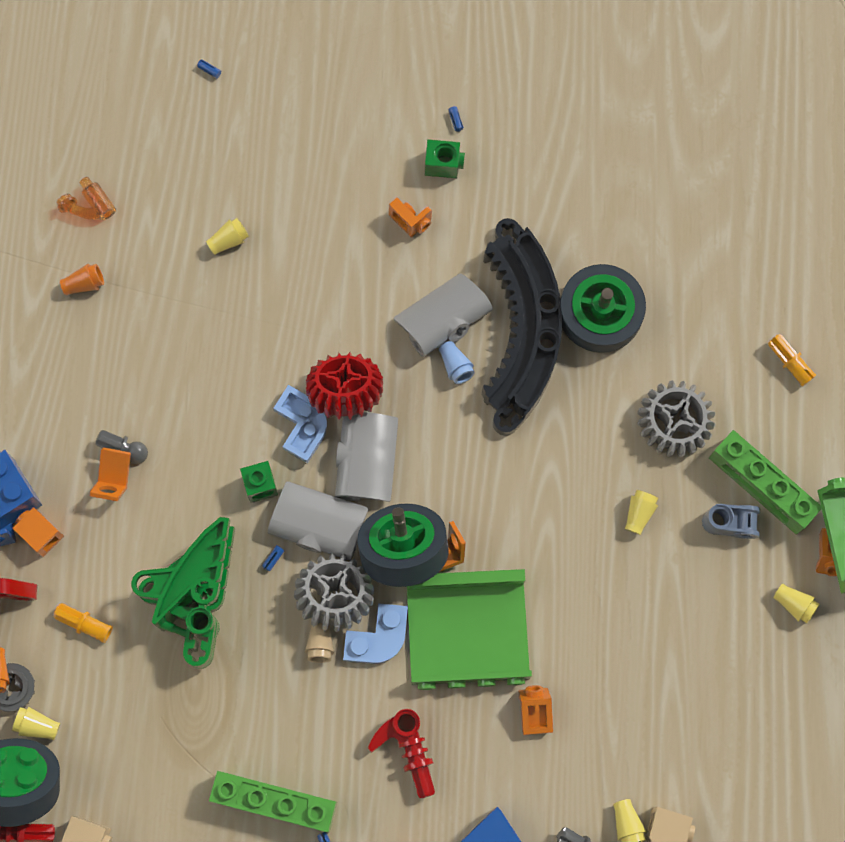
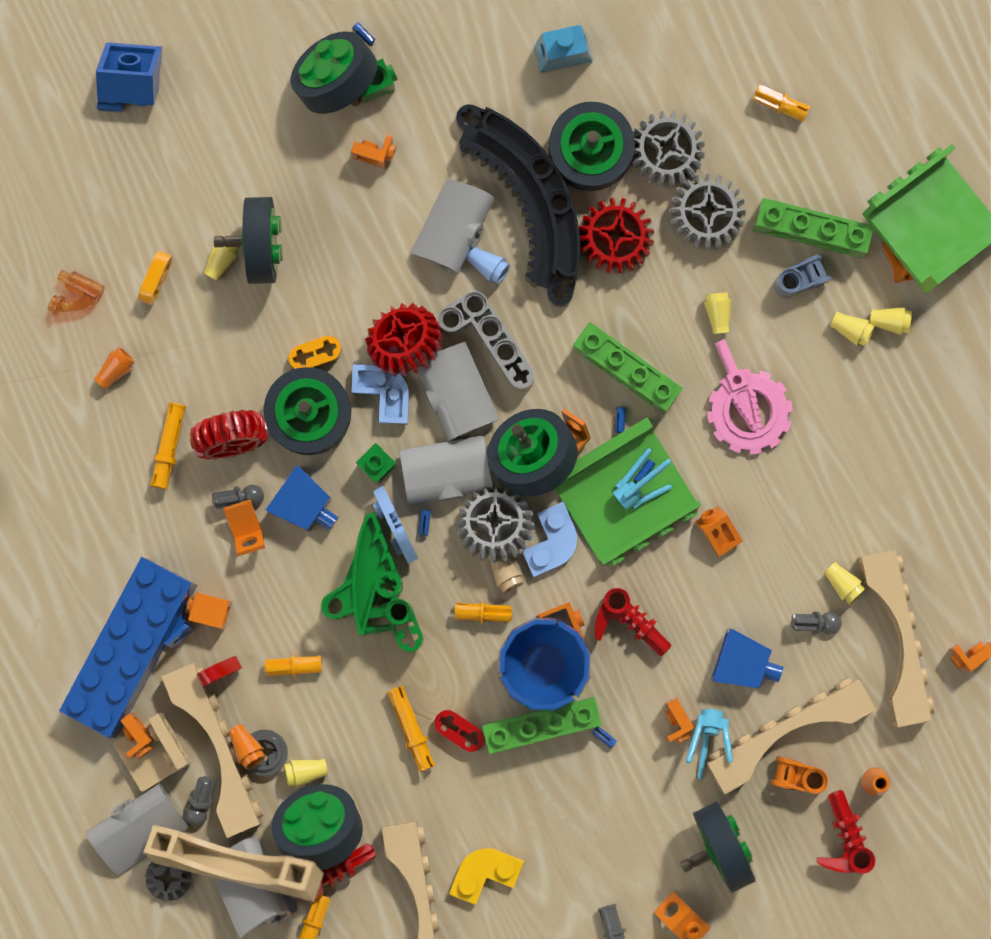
camera: 25 degrees left, 10 degrees up
(86, 372) = (166, 452): none -> light orange pin
(143, 384) = (228, 434): none -> red gear
(153, 739) = (415, 740): none -> light orange pin
(162, 224) = (155, 277): none -> light orange beam
(175, 480) = (302, 502): none -> blue torso
(190, 769) = (454, 736): none -> red beam
(225, 403) = (307, 411): none -> wheel
(238, 49) = (129, 74): none -> blue slope
(244, 527) = (401, 541): none -> light blue plate
(261, 366) = (312, 347): none -> light orange beam
(265, 233) = (257, 240): none -> black wheel
(279, 667) = (483, 612): none -> light orange axle
(304, 743) = (544, 664): none -> blue plate
(360, 717) = (574, 616): none -> orange bracket
(411, 132) = (334, 72): none -> black wheel
(422, 432) = (492, 343): none -> light grey beam
(471, 630) = (628, 493): none -> medium azure plant
(496, 618) = (645, 470): none -> blue piece
(500, 560) = (620, 419): none -> blue piece
(530, 517) = (627, 368): none -> bright green brick
(590, 404) = (629, 237): none -> red gear
(622, 214) = (563, 48): none -> dark azure torso
(623, 591) = (741, 390): none -> bright pink bar
(685, 330) = (678, 155): none -> light grey gear
(756, 591) = (853, 328): none -> light yellow cone

